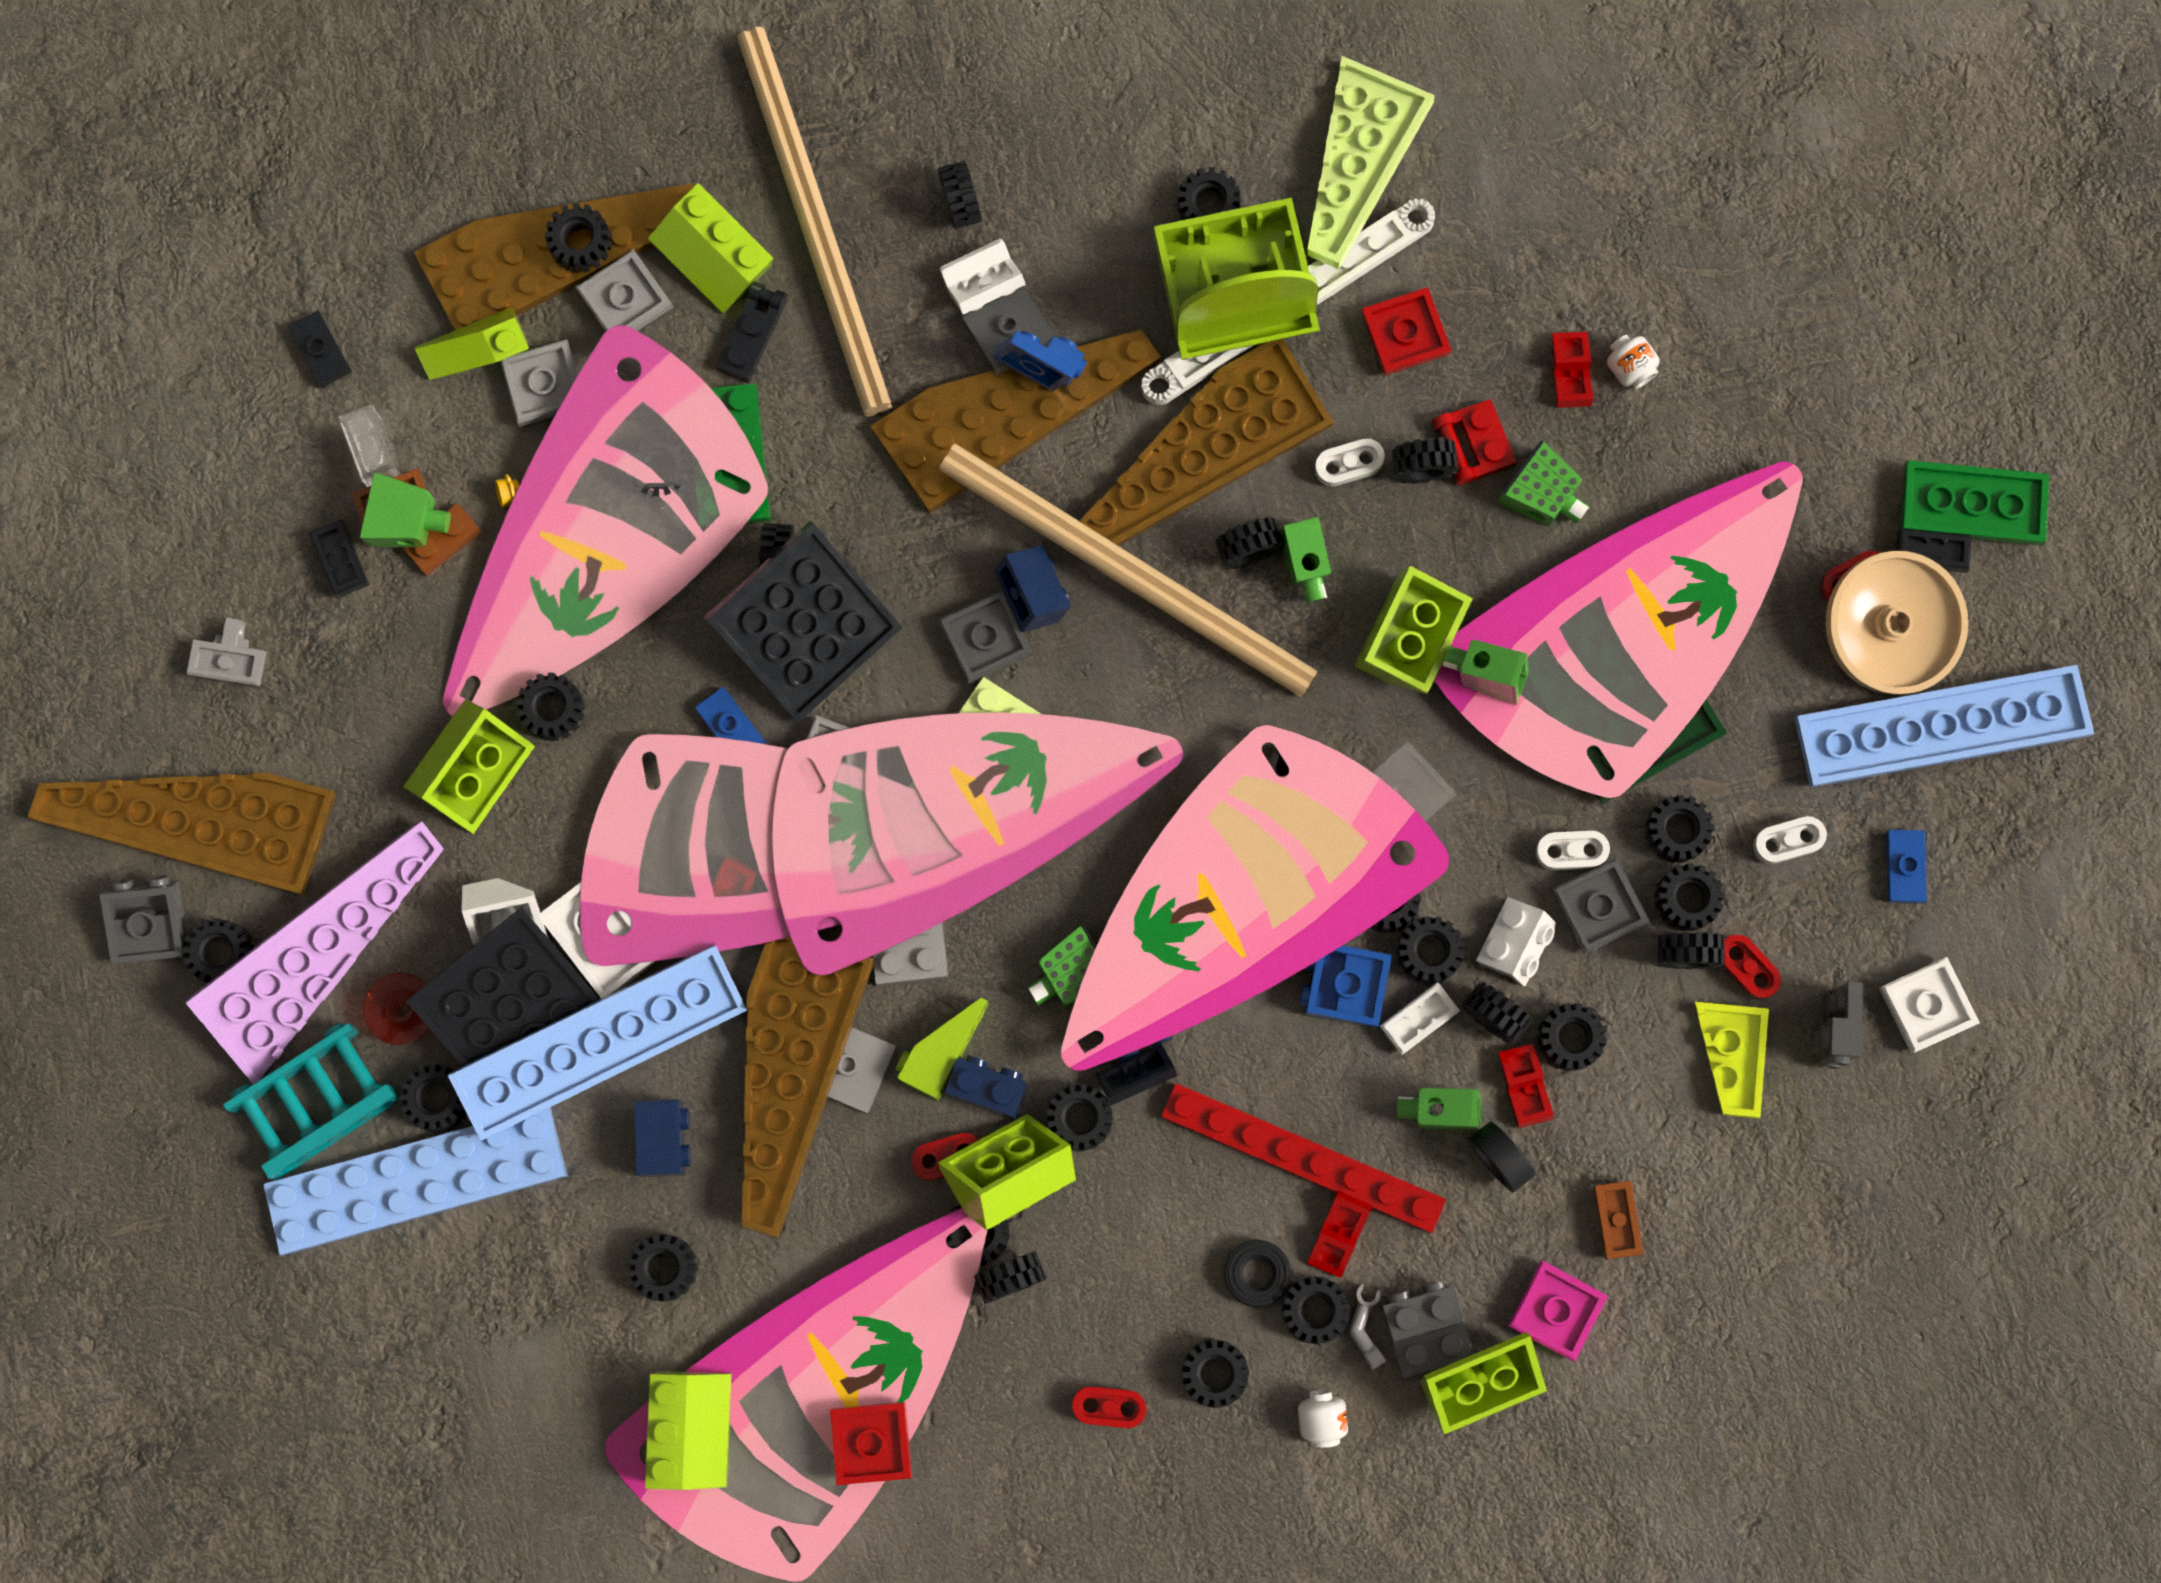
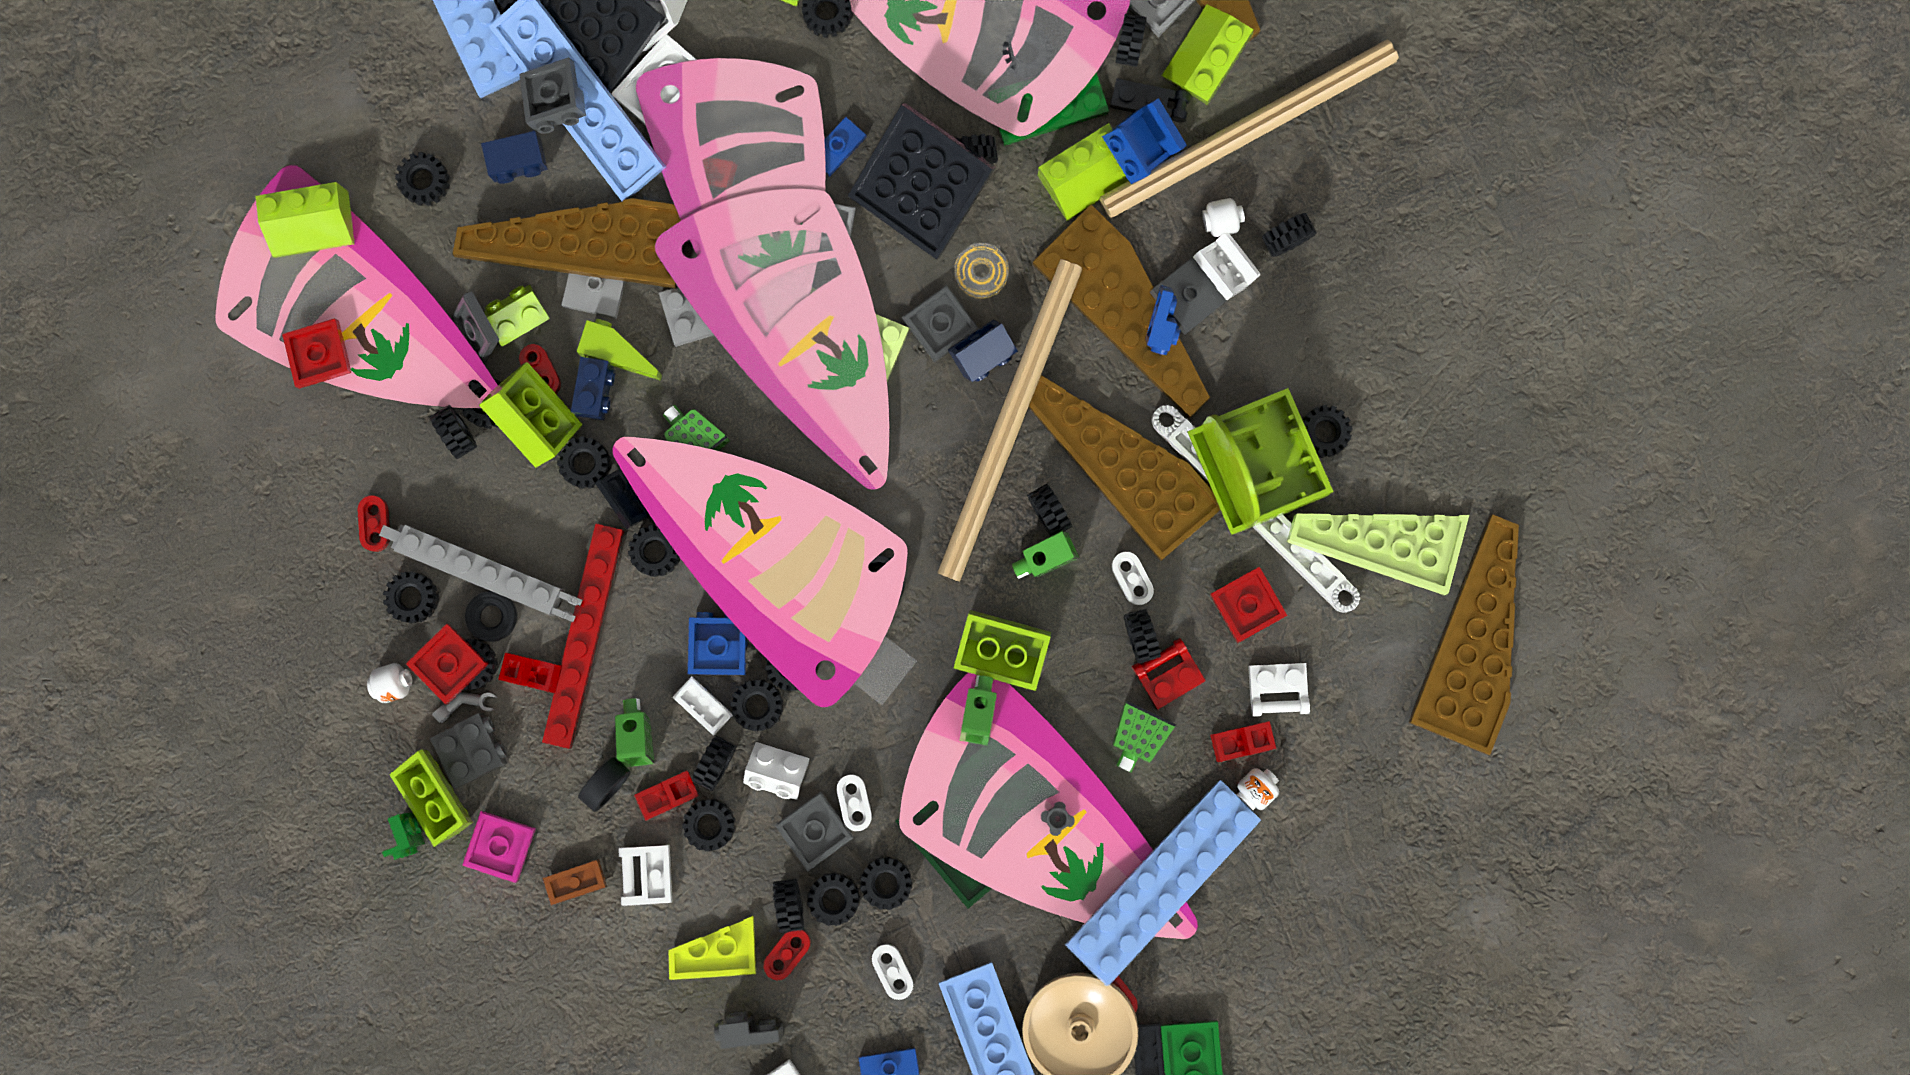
camera: 80 degrees right, 5 degrees up
(594, 1069) = (552, 96): none -> dark grey plate
(675, 335) = (1130, 40): none -> black tyre
(806, 342) = (1144, 140): none -> blue panel
(829, 423) = (1082, 174): none -> lime slope
(867, 1175) = (515, 314): none -> lime bracket
(876, 1223) = (475, 326): none -> dark grey plate
(920, 270) = (1223, 217): none -> white head
(930, 596) = (981, 286): none -> clear tile
(1197, 1275) = (479, 570): none -> light grey hinge
(1211, 1068) = (638, 557): none -> black tyre
(1314, 1332) = (447, 664): none -> red plate
(1503, 313) = (1278, 679): none -> white plate
(1520, 1421) = (407, 835): none -> green bracket
(1533, 91) = (1472, 668): none -> pearl gold wing
(1623, 1116) = (654, 875): none -> white plate
(1640, 594) = (1065, 819): none -> dark grey plate
(1732, 491) = (1162, 883): none -> light blue plate

